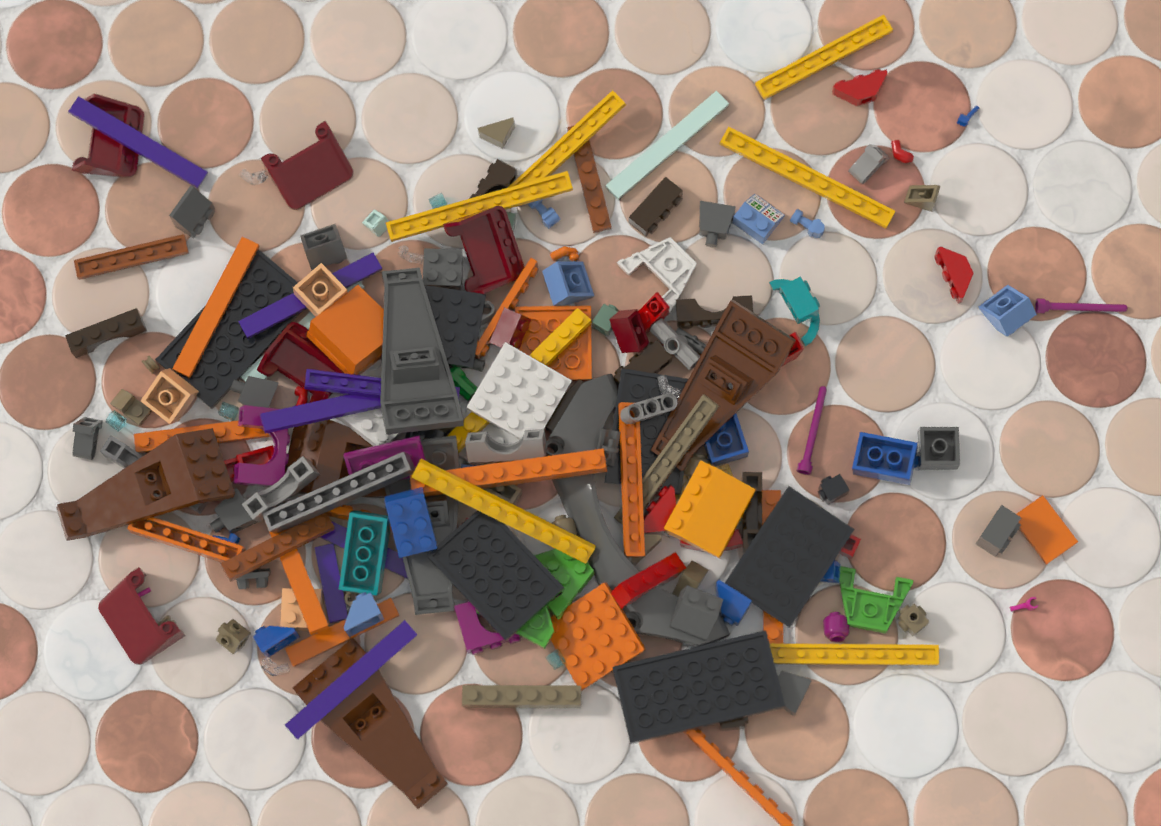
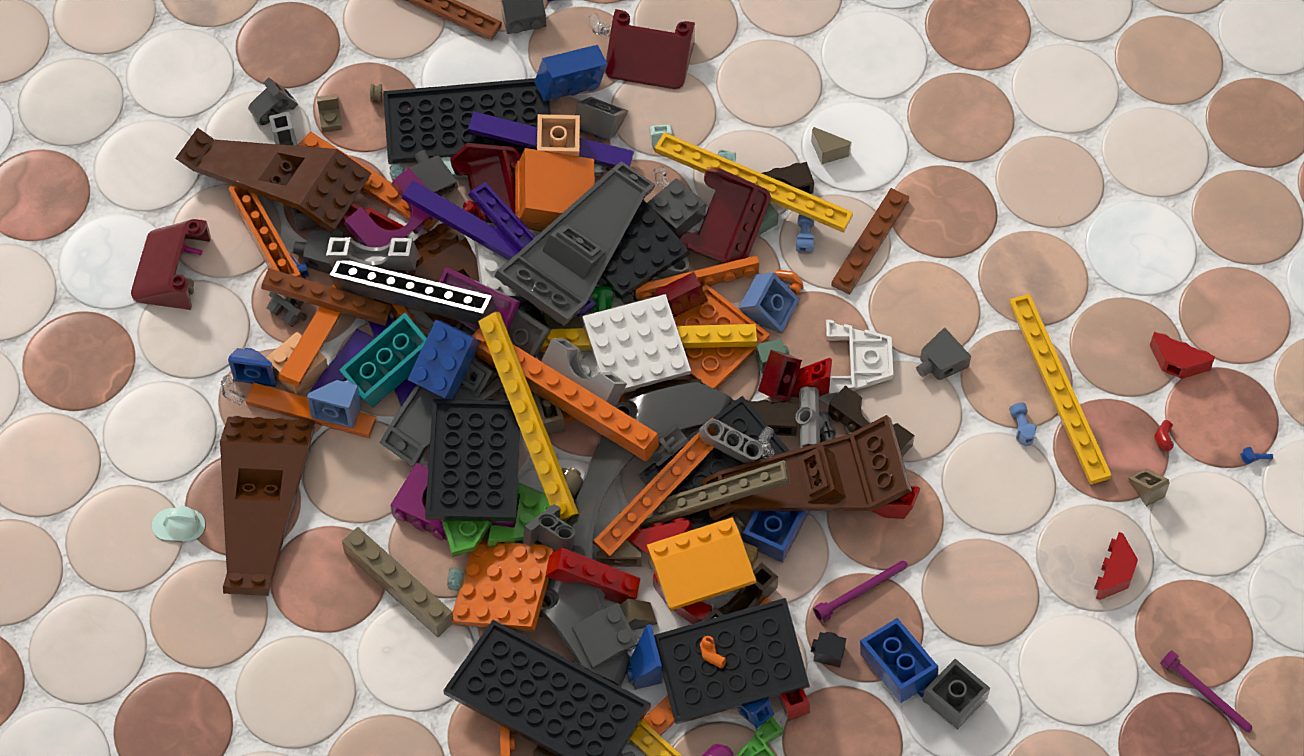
camera: 40 degrees right, 15 degrees down
(90, 337) = (387, 48): dark brown arch -> none
(116, 420) = (307, 111): clear light blue hose -> none
(169, 396) = (364, 123): light nougat brick -> none
(216, 307) = (464, 92): orange tile -> none
(232, 636) = (223, 337): dark tan brick -> none
(277, 233) = (570, 73): none -> blue brick
(335, 790) = (178, 524): none -> light aqua piece
(350, 679) = (275, 442): dark purple tile -> none
(573, 139) = (888, 196): yellow plate -> none
(598, 578) = (550, 530): none -> dark grey tile
(656, 207) = (903, 305): dark brown brick -> none
(667, 145) = (963, 268): light aqua tile -> none
(757, 218) = (983, 384): medium blue slope -> none
(774, 565) = (709, 652): none -> orange arm
(800, 304) = (949, 475): teal piece -> none
(823, 57) = (1170, 307): yellow plate -> none
(868, 163) = (1126, 418): light grey tile -> none
(1008, 310) = (1134, 638): medium blue slope -> none

